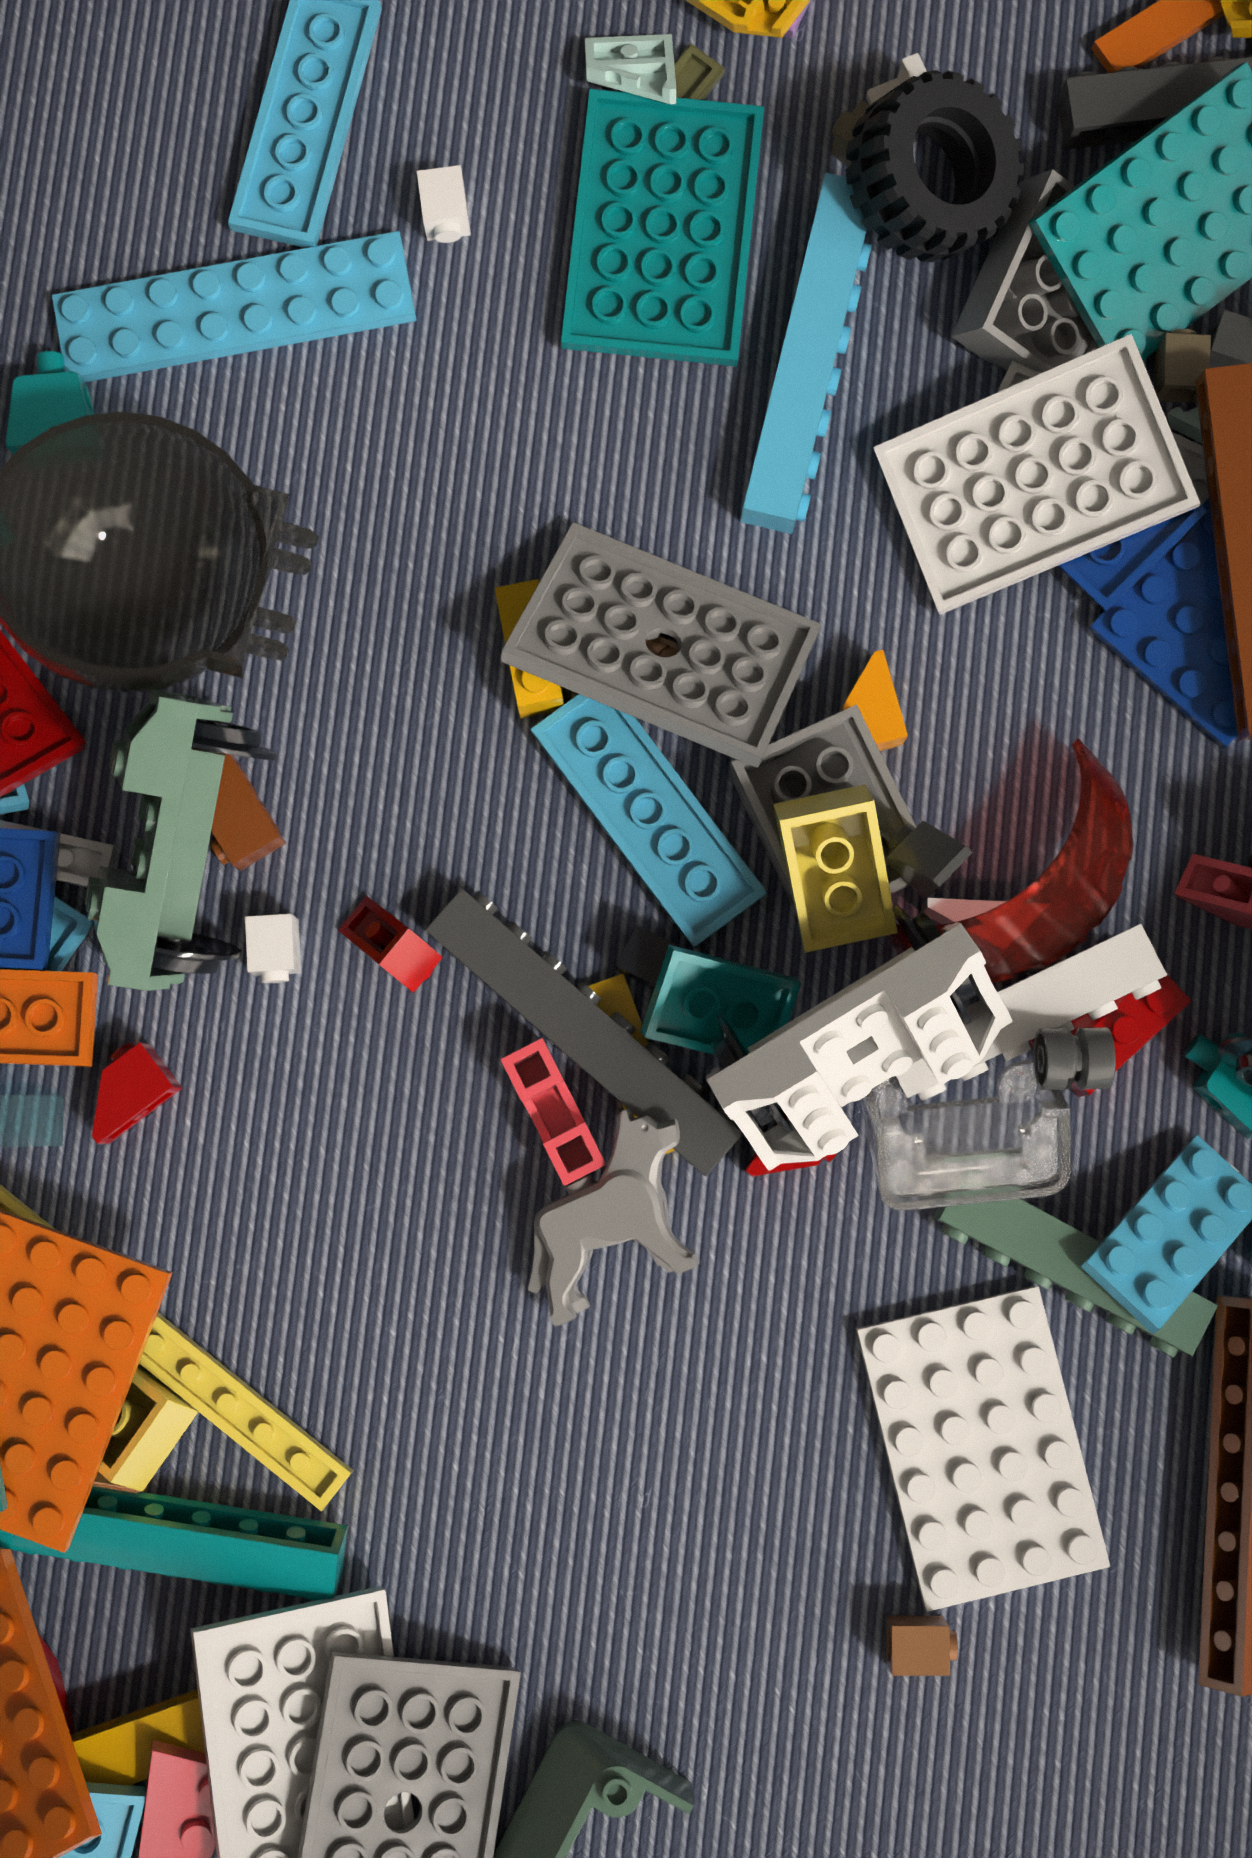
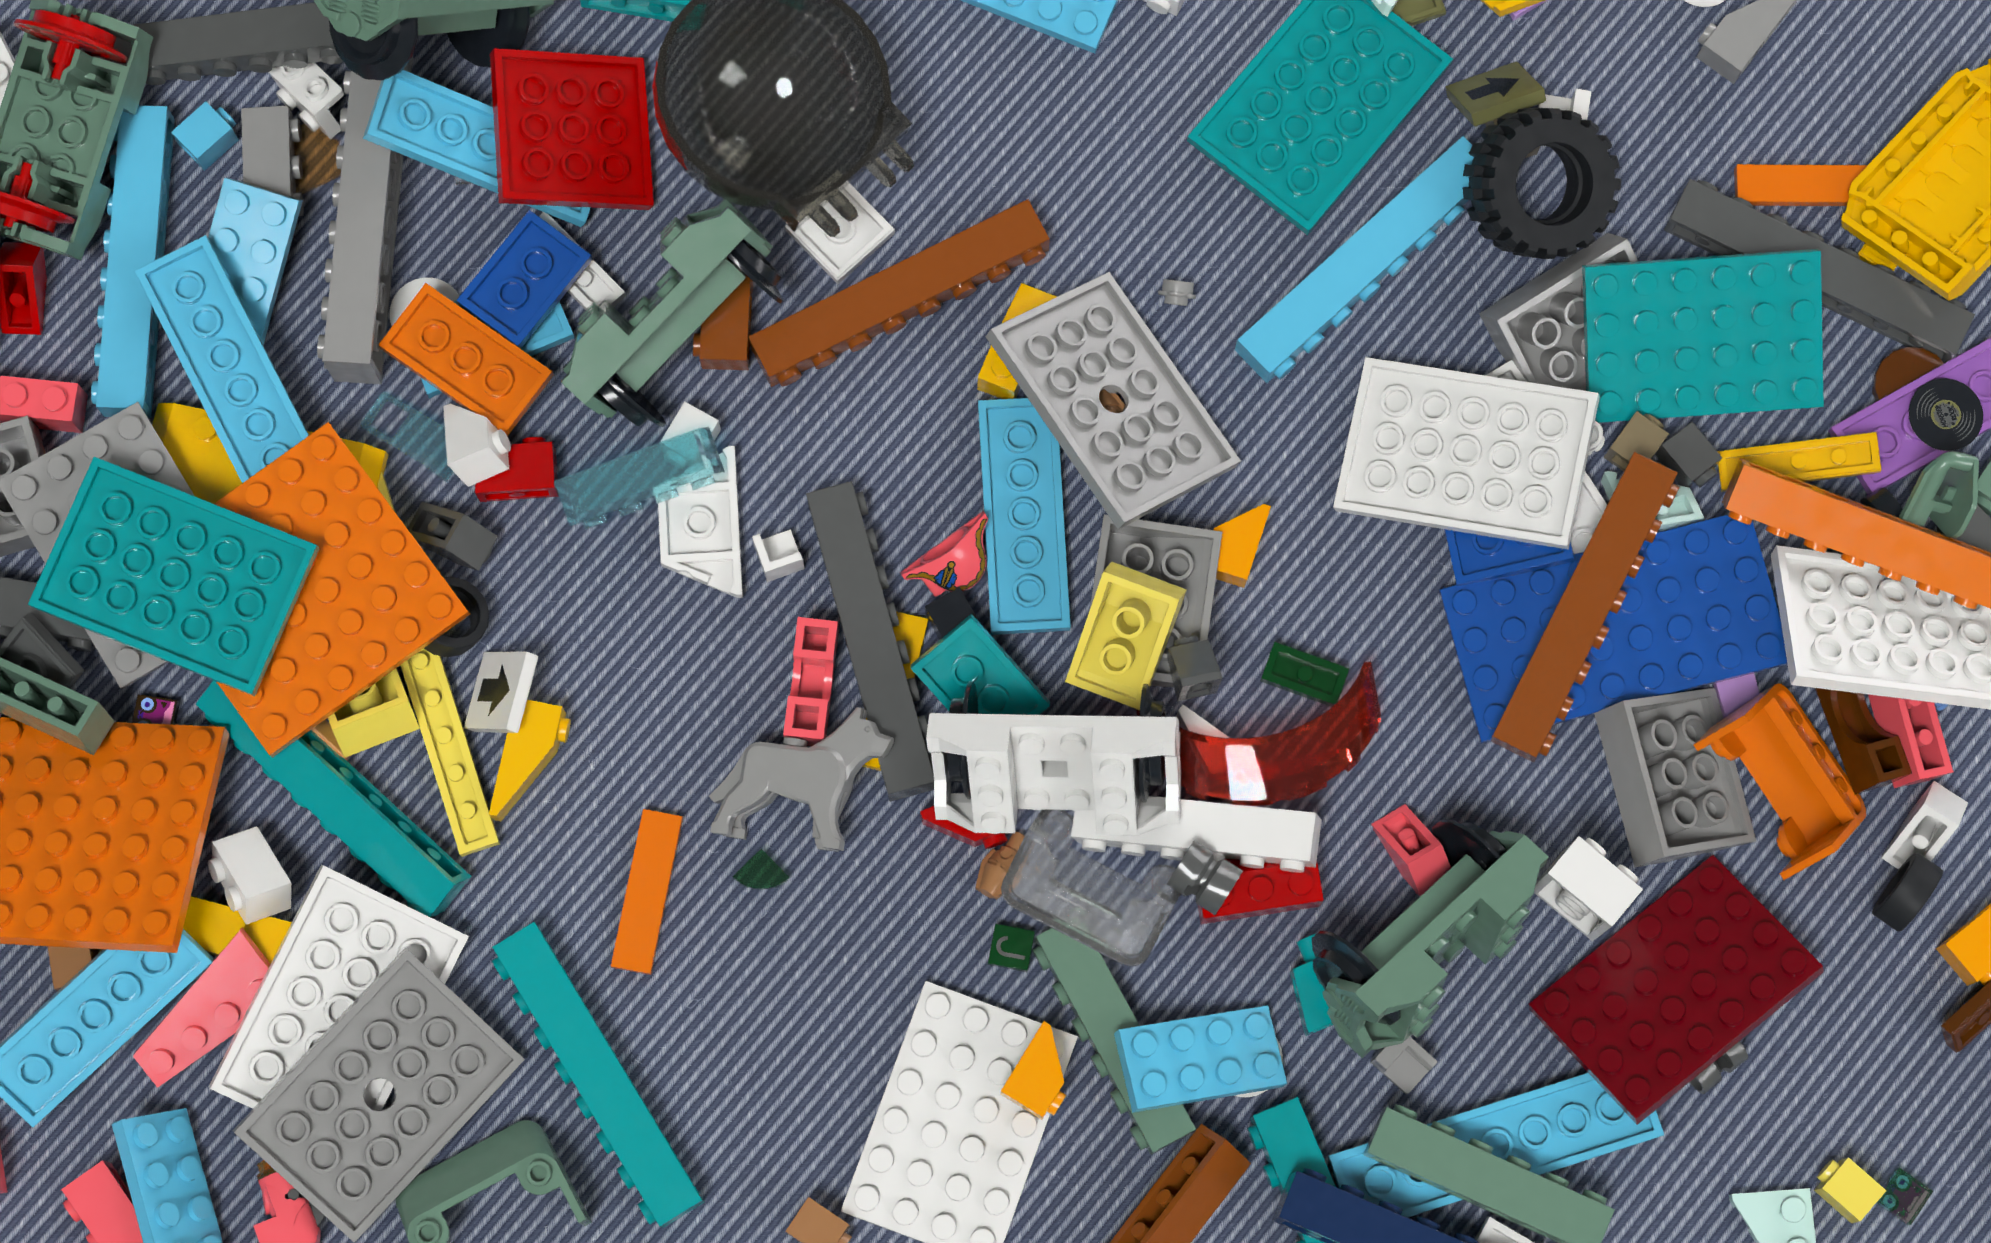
camera: 30 degrees right, 5 degrees down
(64, 1098) = (474, 445): none -> white slope
(102, 1199) = (452, 535): none -> dark grey slope
(126, 1678) = (250, 875): none -> white brick
(183, 1260) = (479, 619): none -> black tyre
(250, 1021) = (639, 477): none -> clear light blue brick
(255, 1325) = (501, 692): none -> white tile
(308, 657) = (854, 243): none -> white tile
(318, 1358) = (528, 754): none -> yellow slope
(342, 1024) = (703, 531): none -> white wing
(384, 674) = (899, 294): none -> dark orange brick
(390, 944) = (774, 489): red slope -> none
(436, 1006) = (778, 555): none -> white panel
(529, 1423) = (647, 892): none -> orange tile
(605, 1641) = (598, 1076): none -> teal brick
(611, 902) = (954, 561): none -> coral hat
(628, 1329) = (761, 873): none -> clear green tile
(650, 500) = (1177, 292): none -> light grey plate
(828, 113) = (1495, 93): none -> olive tile
(855, 1174) = (995, 866): none -> medium nougat piece
(916, 1241) = (1011, 947): none -> dark green tile
(1018, 791) = (1304, 674): none -> dark green plate
(1033, 1358) = (1037, 1076): none -> light orange slope

